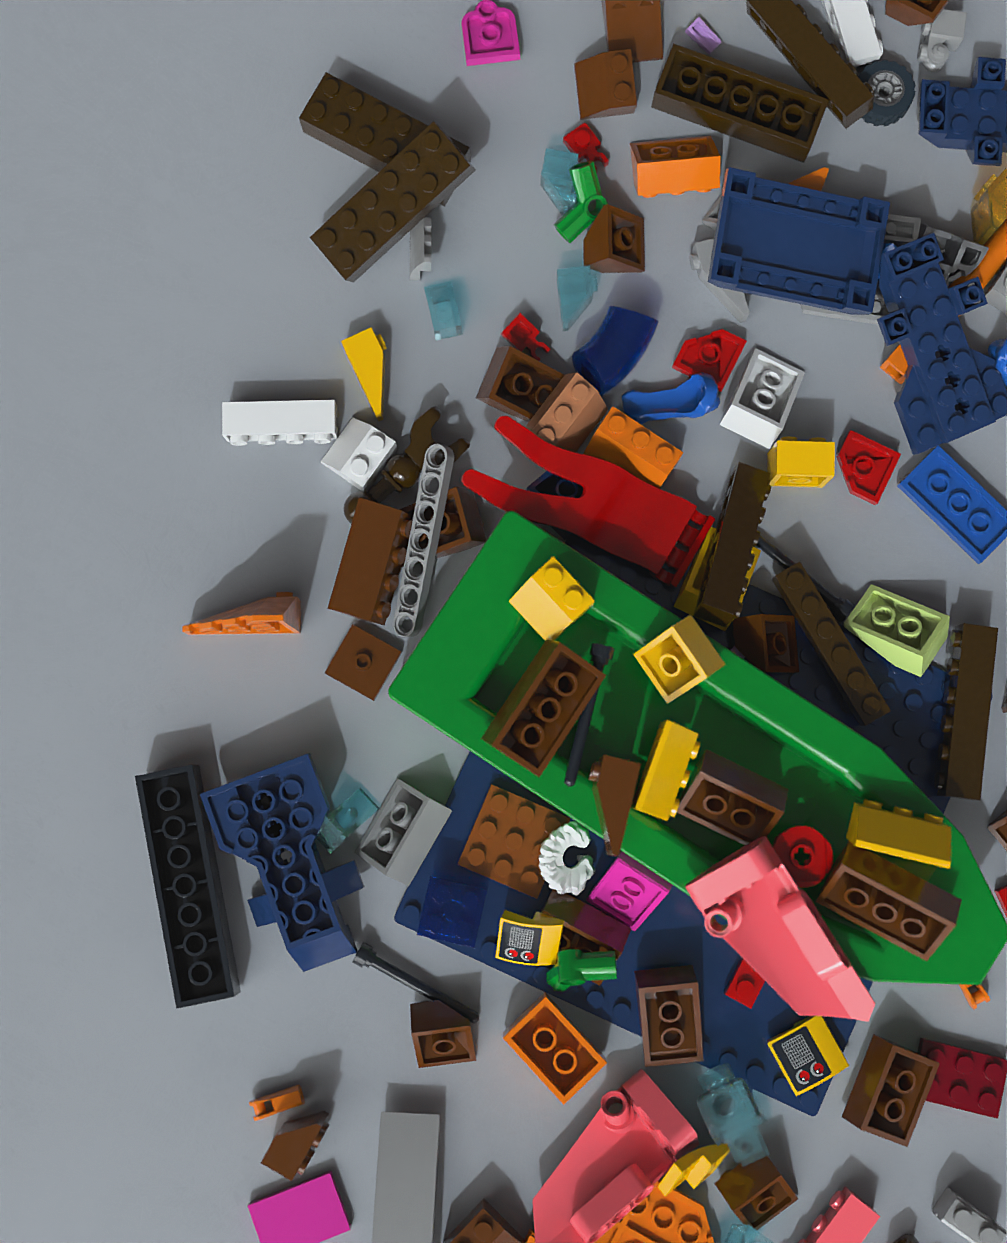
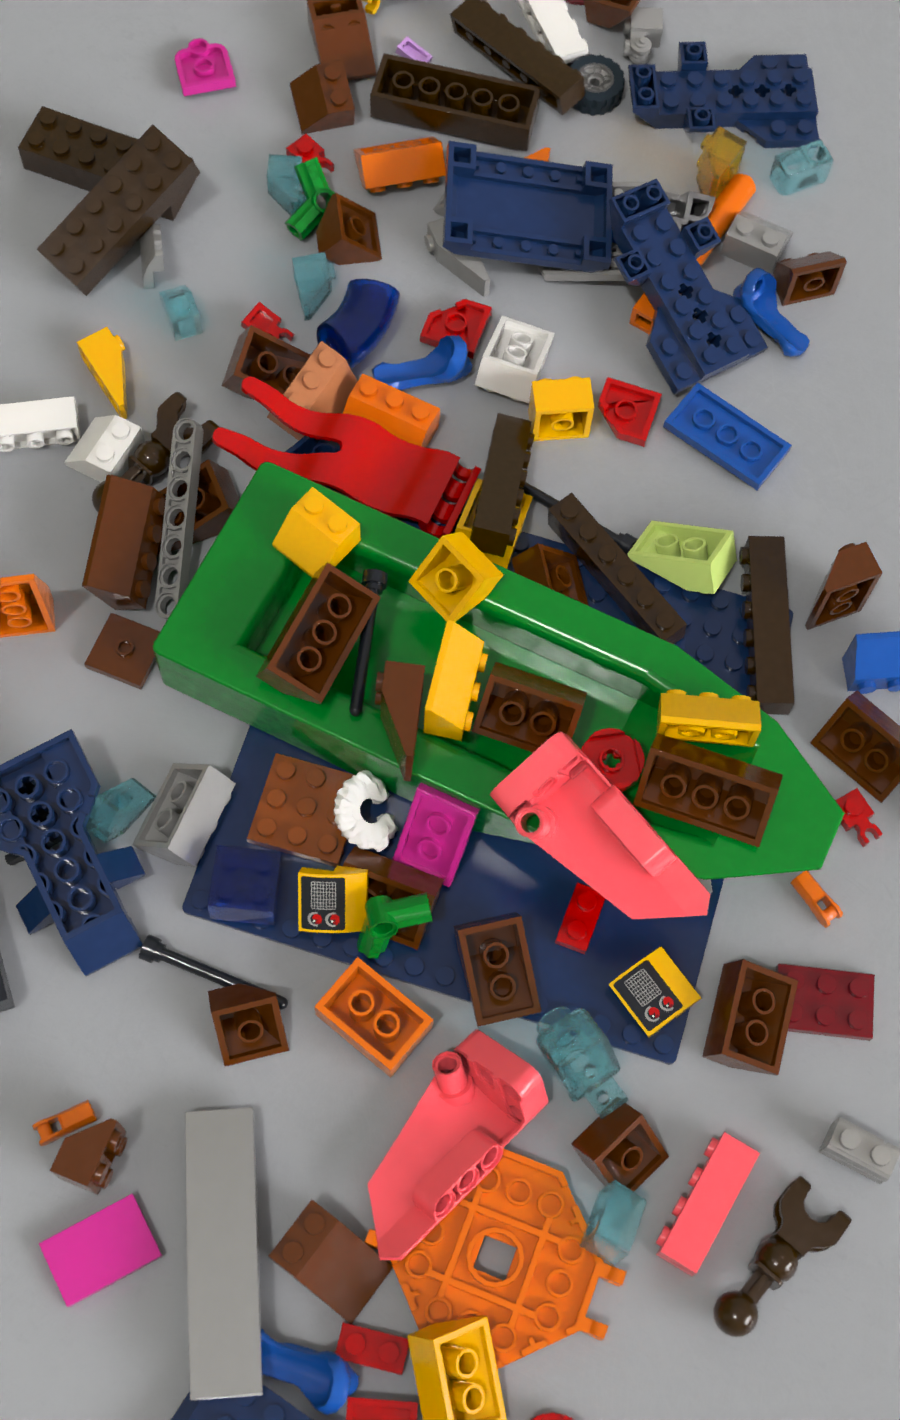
camera: 15 degrees left, 15 degrees down
(694, 1167) = (545, 1122): yellow slope -> none

